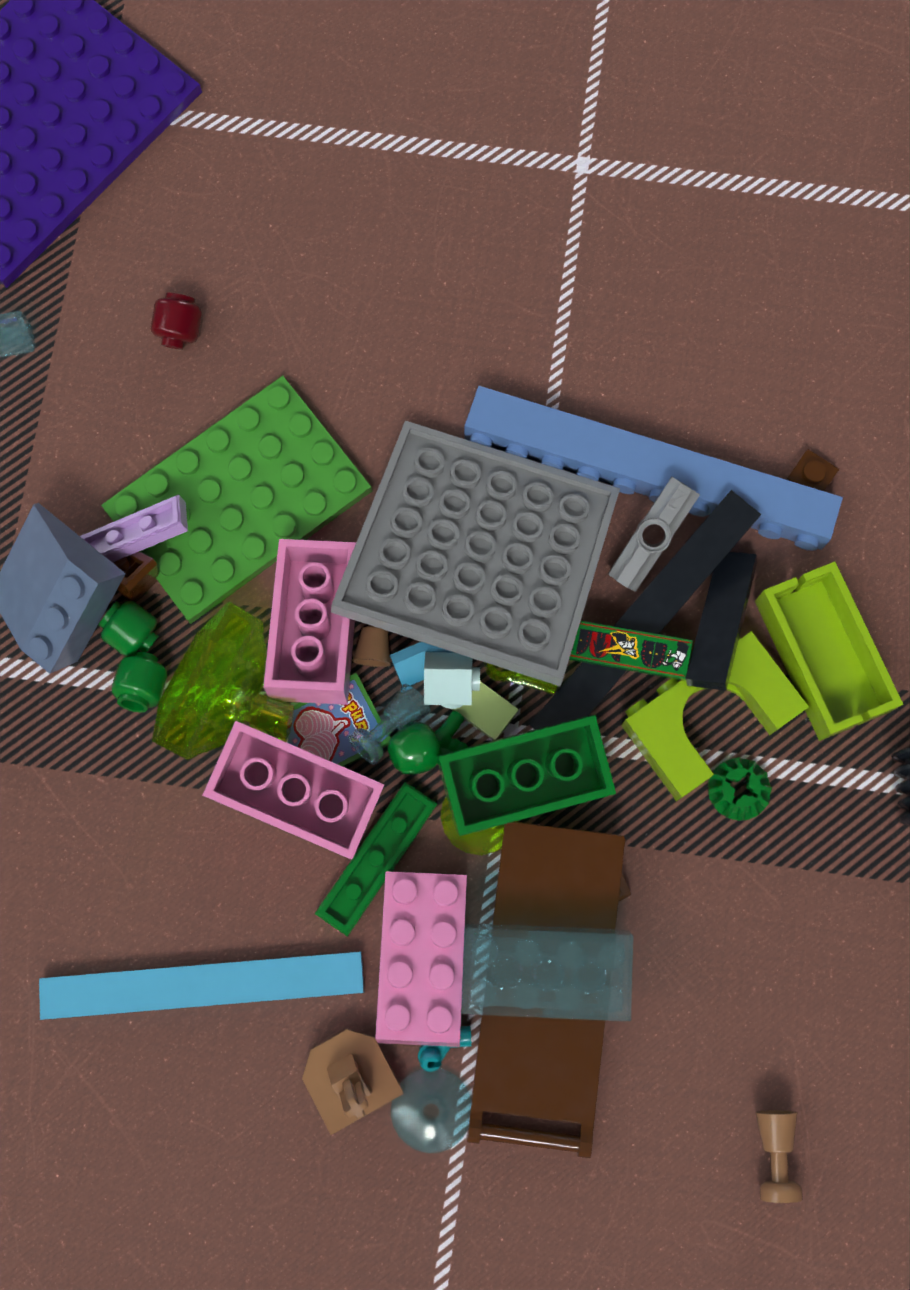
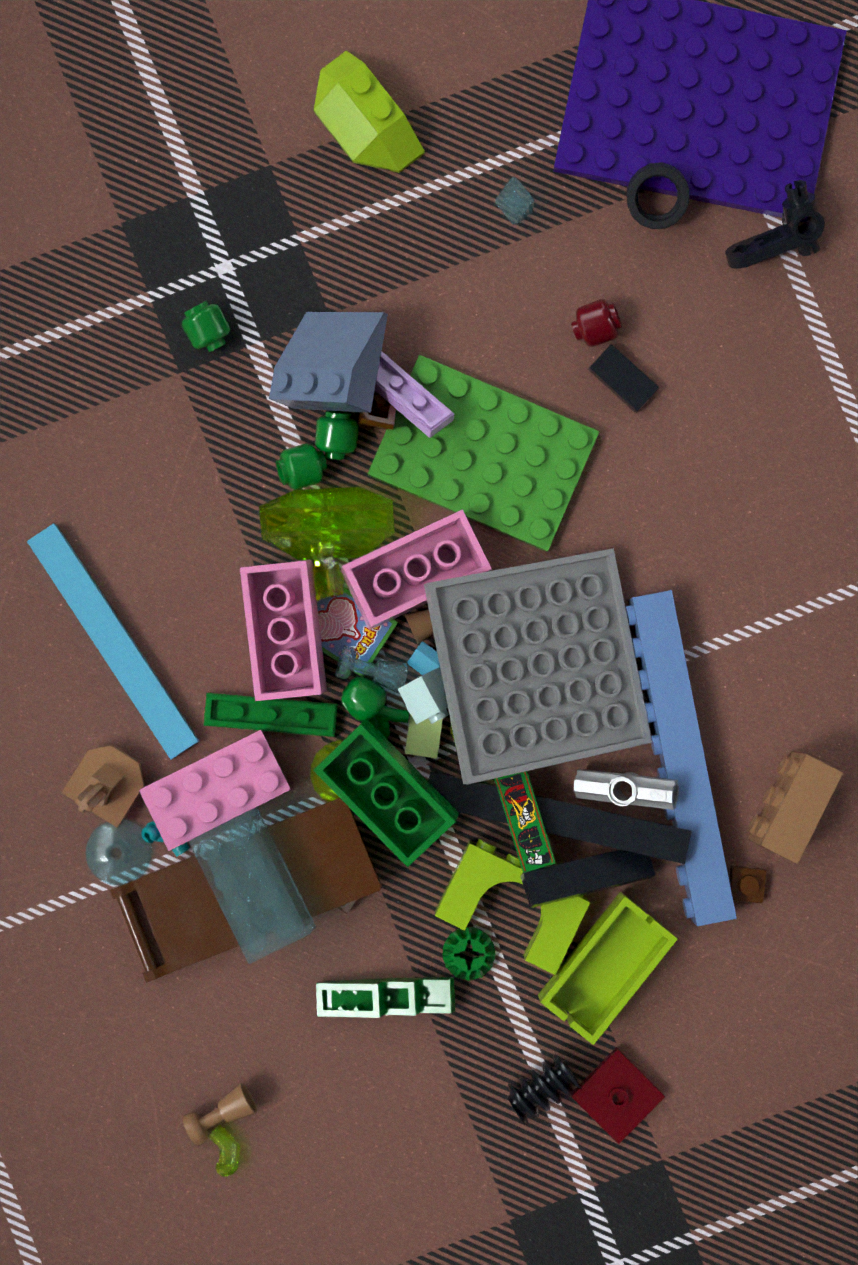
camera: 65 degrees right, 10 degrees up
(104, 175) = (669, 218): none -> black tyre
(202, 104) = (784, 237): none -> black piece
(245, 327) = (623, 378): none -> black tile
(741, 902) = (385, 997): none -> green slope
(758, 383) = (794, 805): none -> medium nougat brick
(824, 1168) = (229, 1151): none -> clear neon green arm

